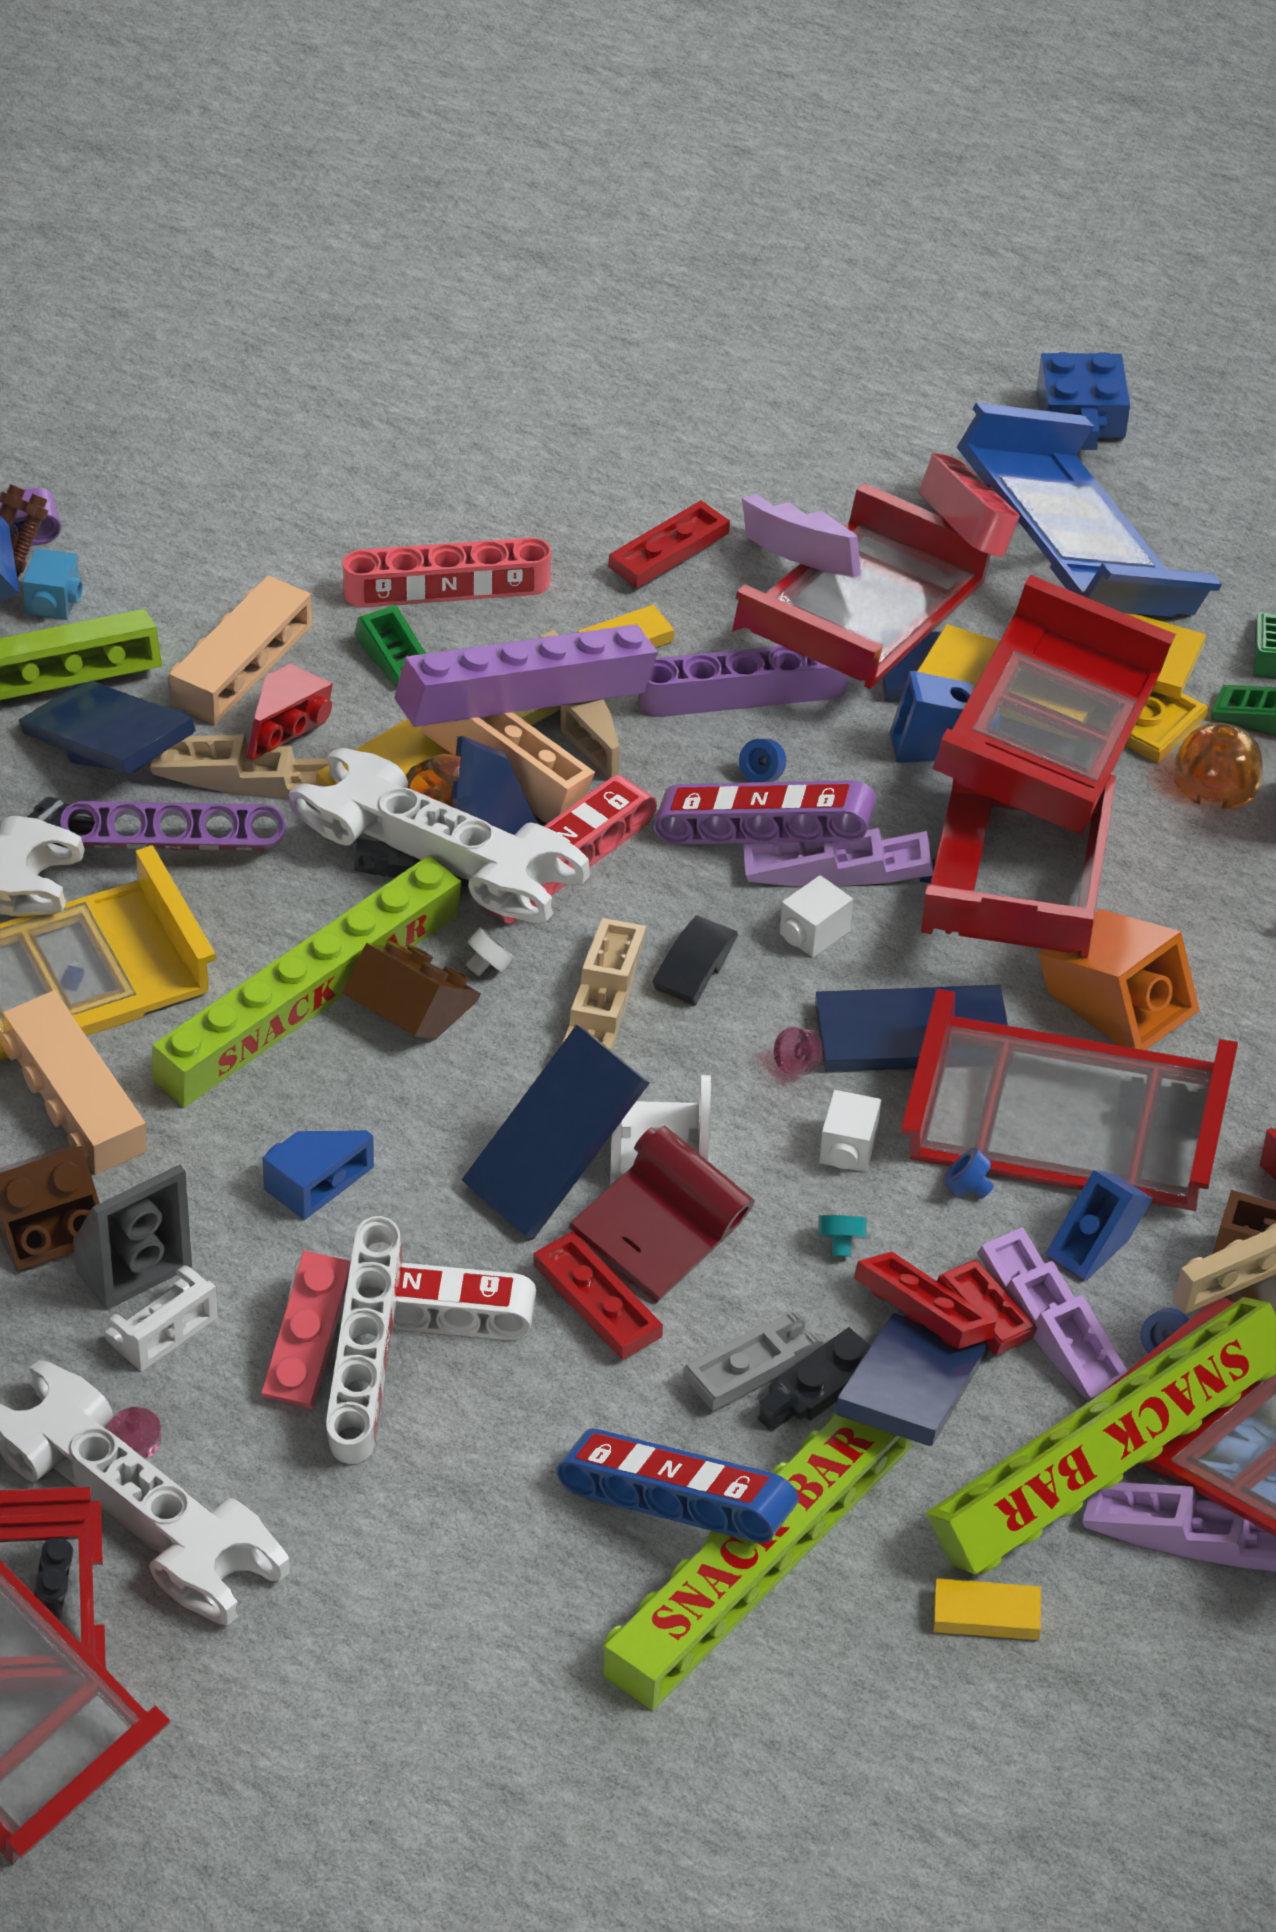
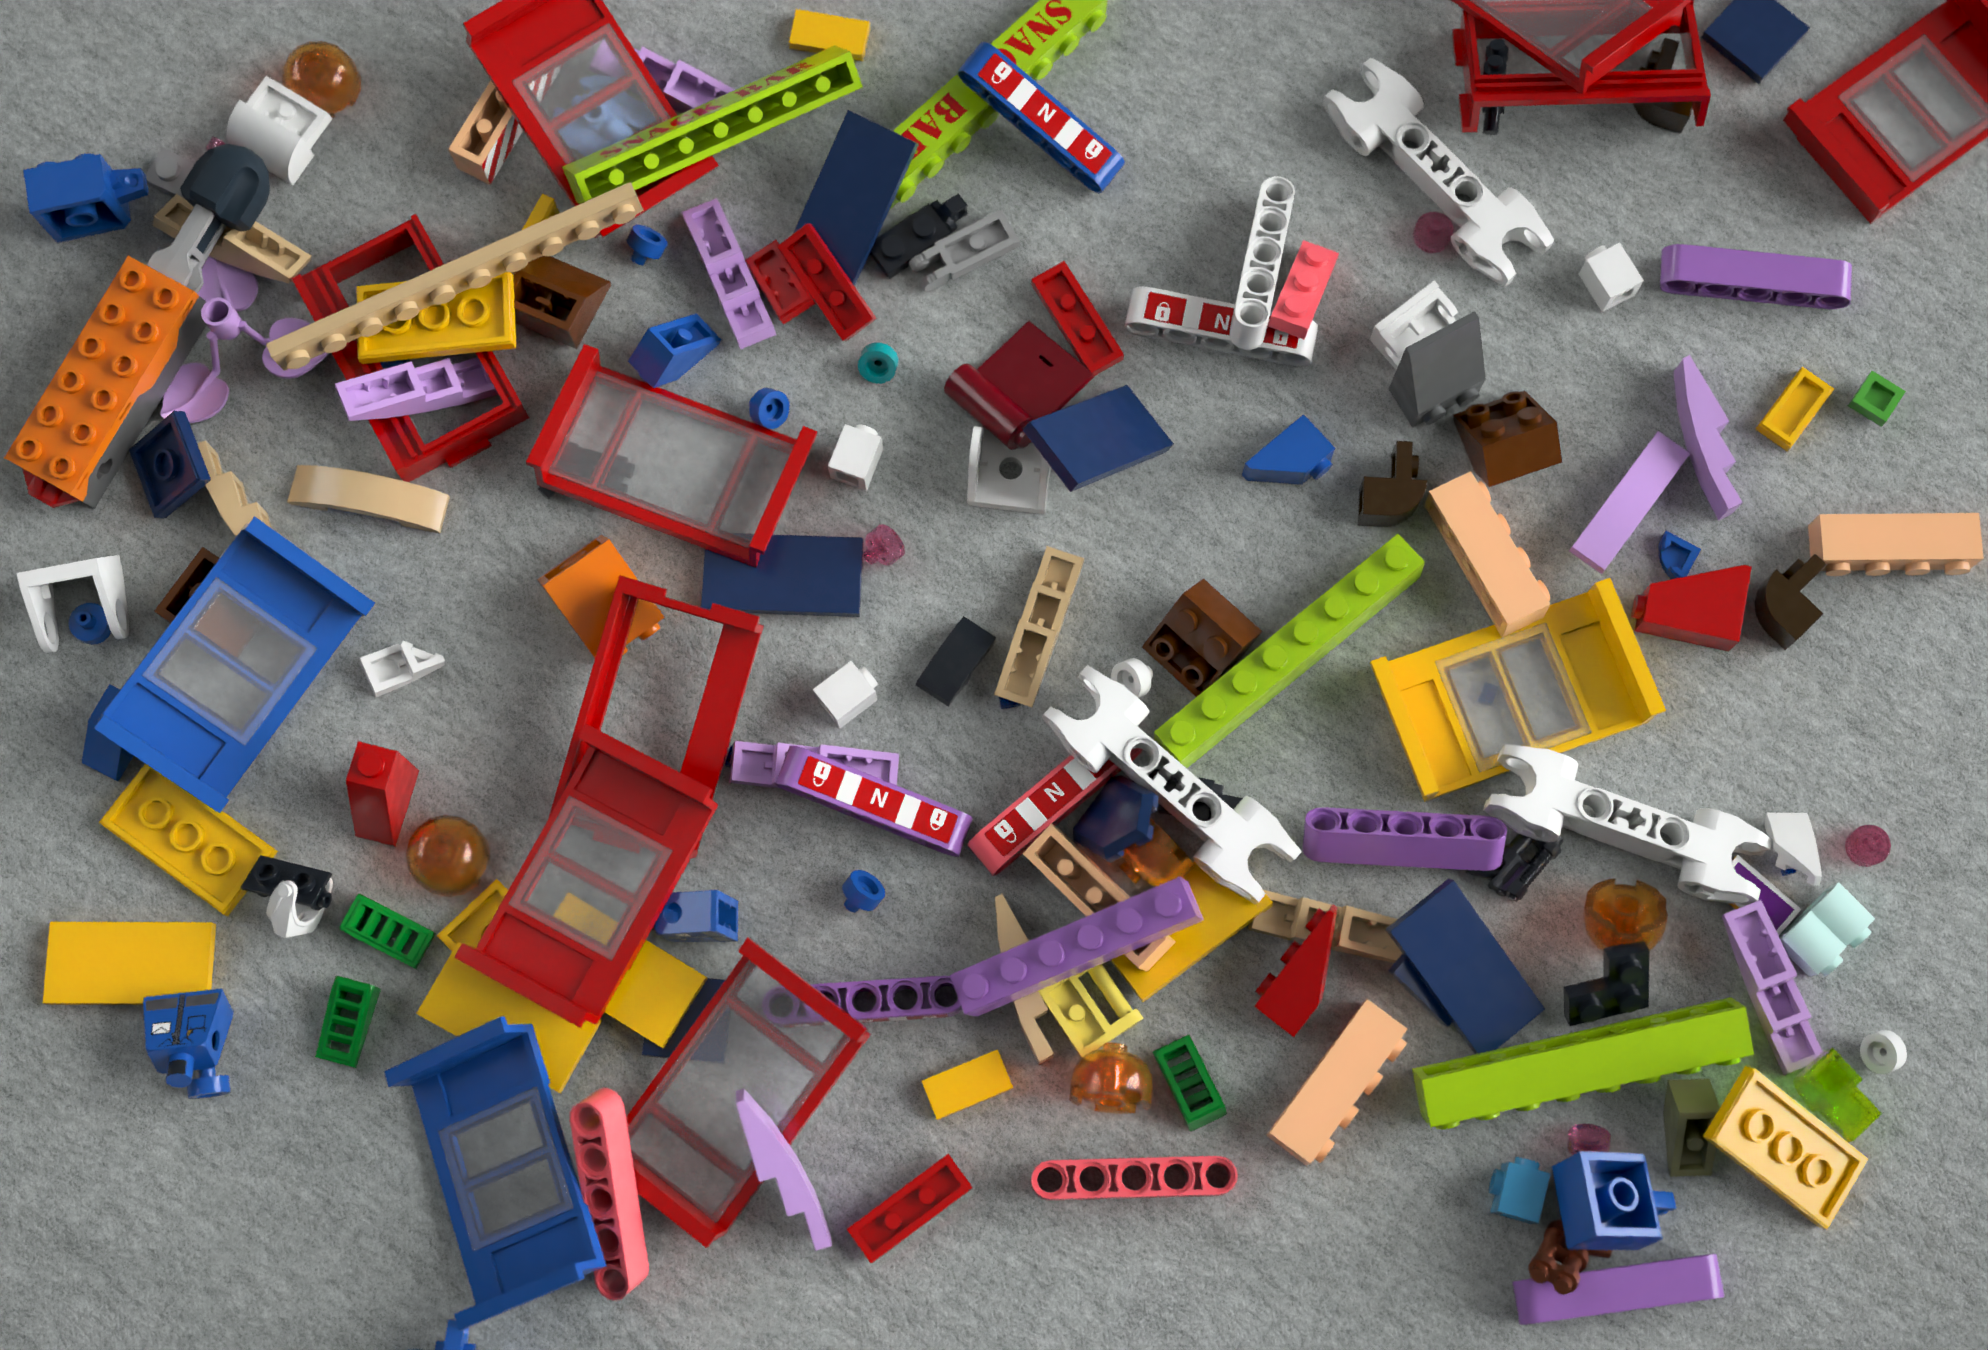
camera: 170 degrees left, 30 degrees up
(189, 1134) = (1393, 499): none -> dark brown brick
(476, 615) = (1112, 1080): none -> clear orange cylinder

